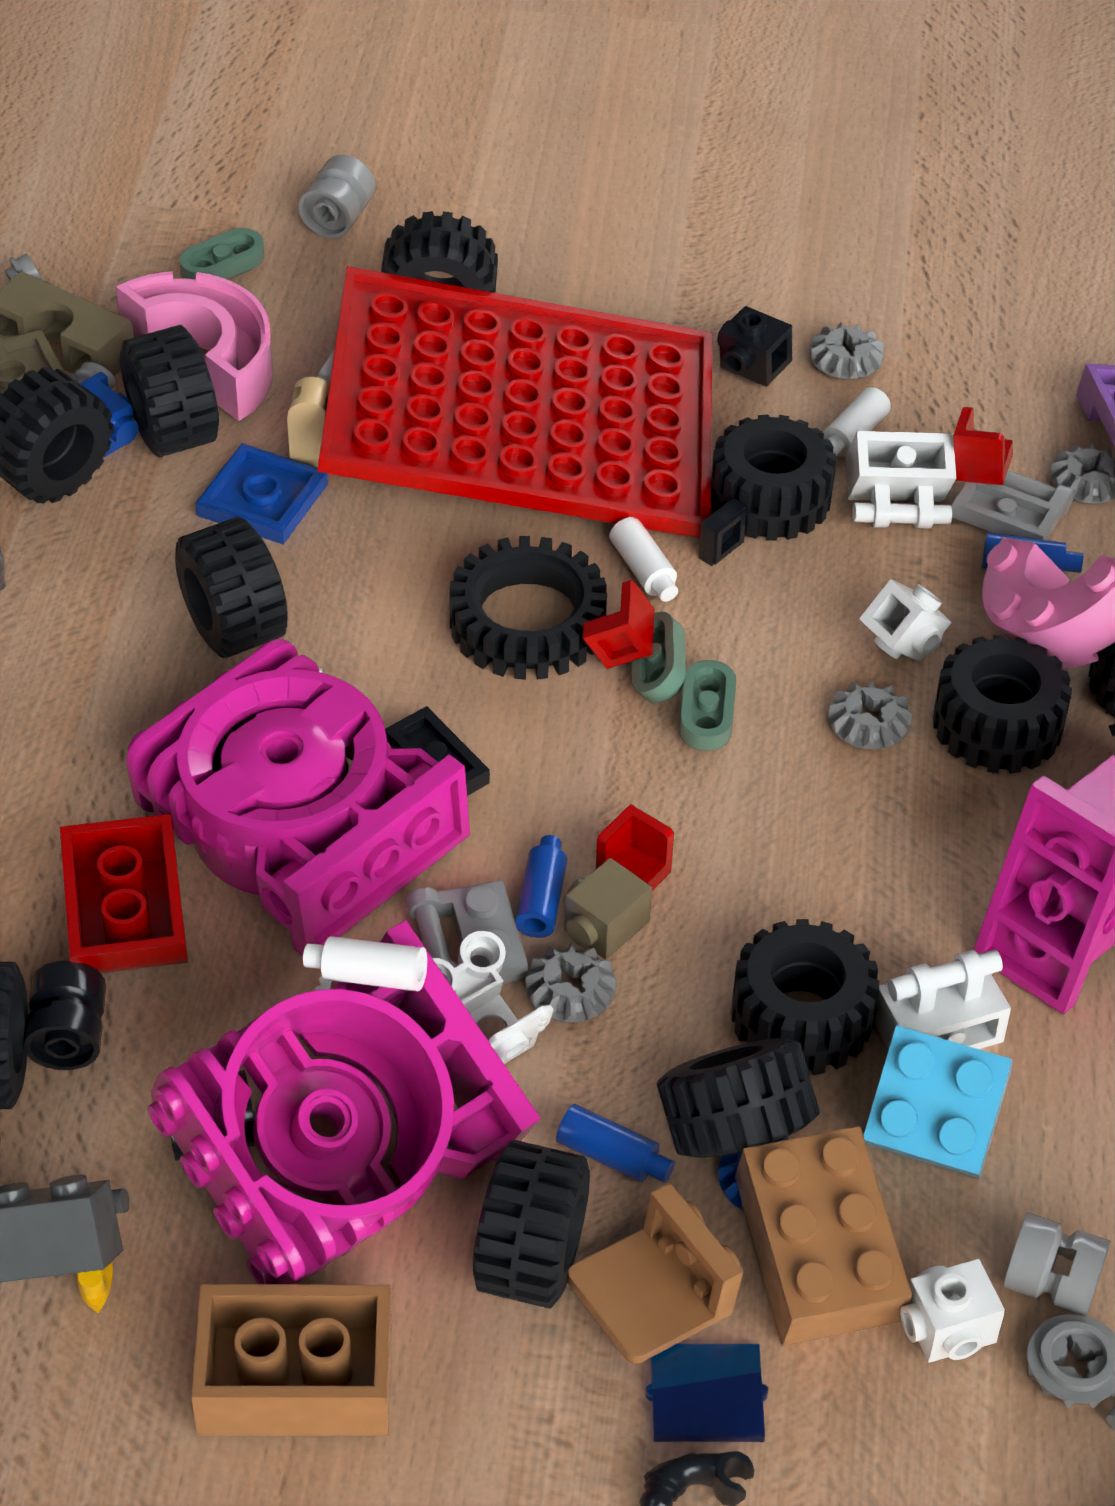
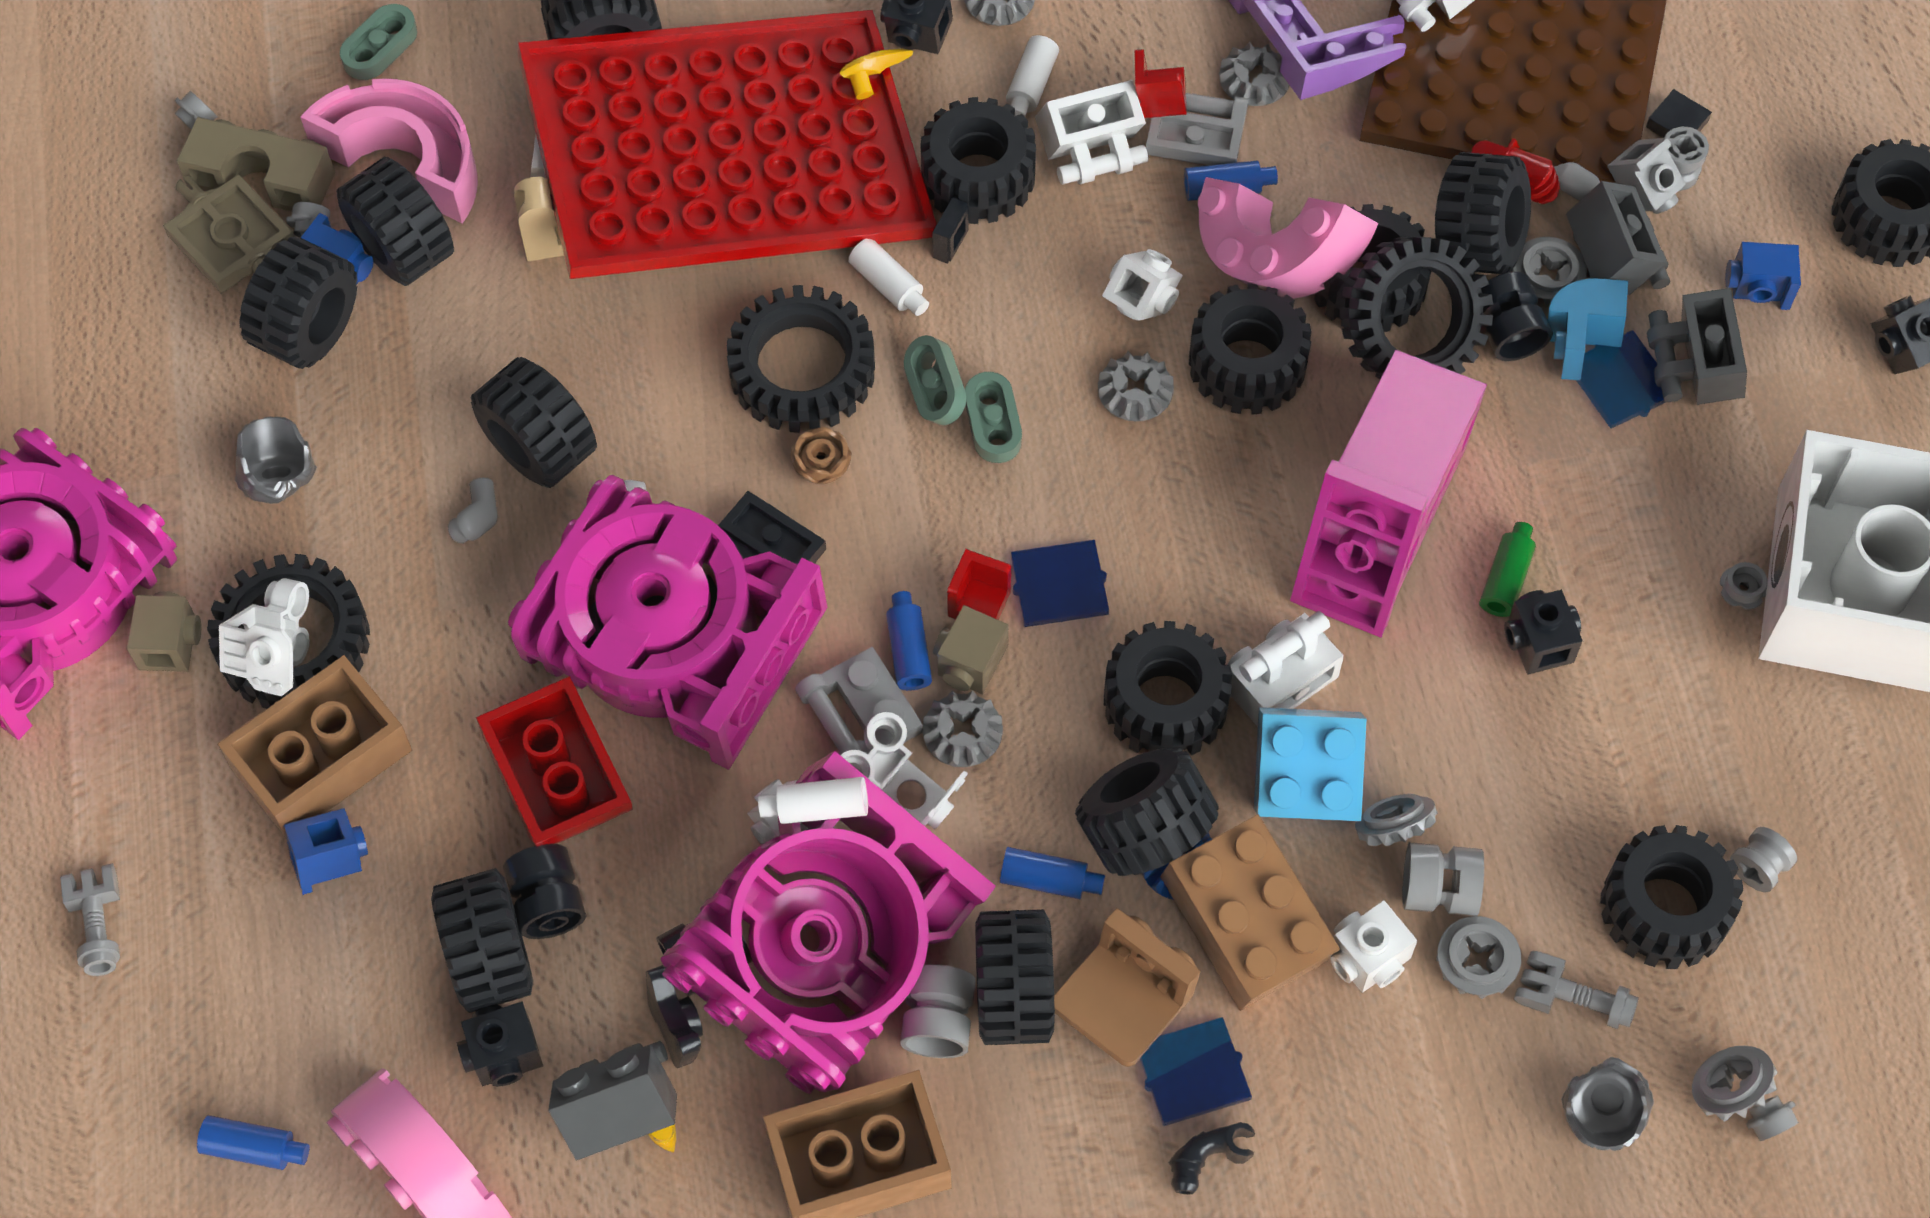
camera: 15 degrees left, 15 degrees up
(146, 667) = (478, 516): none -> light grey arm
(152, 1175) = (676, 1018): none -> black piece
(263, 490) = (513, 298): blue tile -> none
(437, 1245) = (937, 1017): none -> light grey wheel
(515, 696) = (816, 443): none -> medium nougat plate
(623, 634) = (898, 363): red panel -> none
(692, 370) = (871, 64): none -> yellow bar
(725, 876) = (1059, 583): none -> clear blue piece
(1021, 1189) = (1396, 819): none -> light grey gear

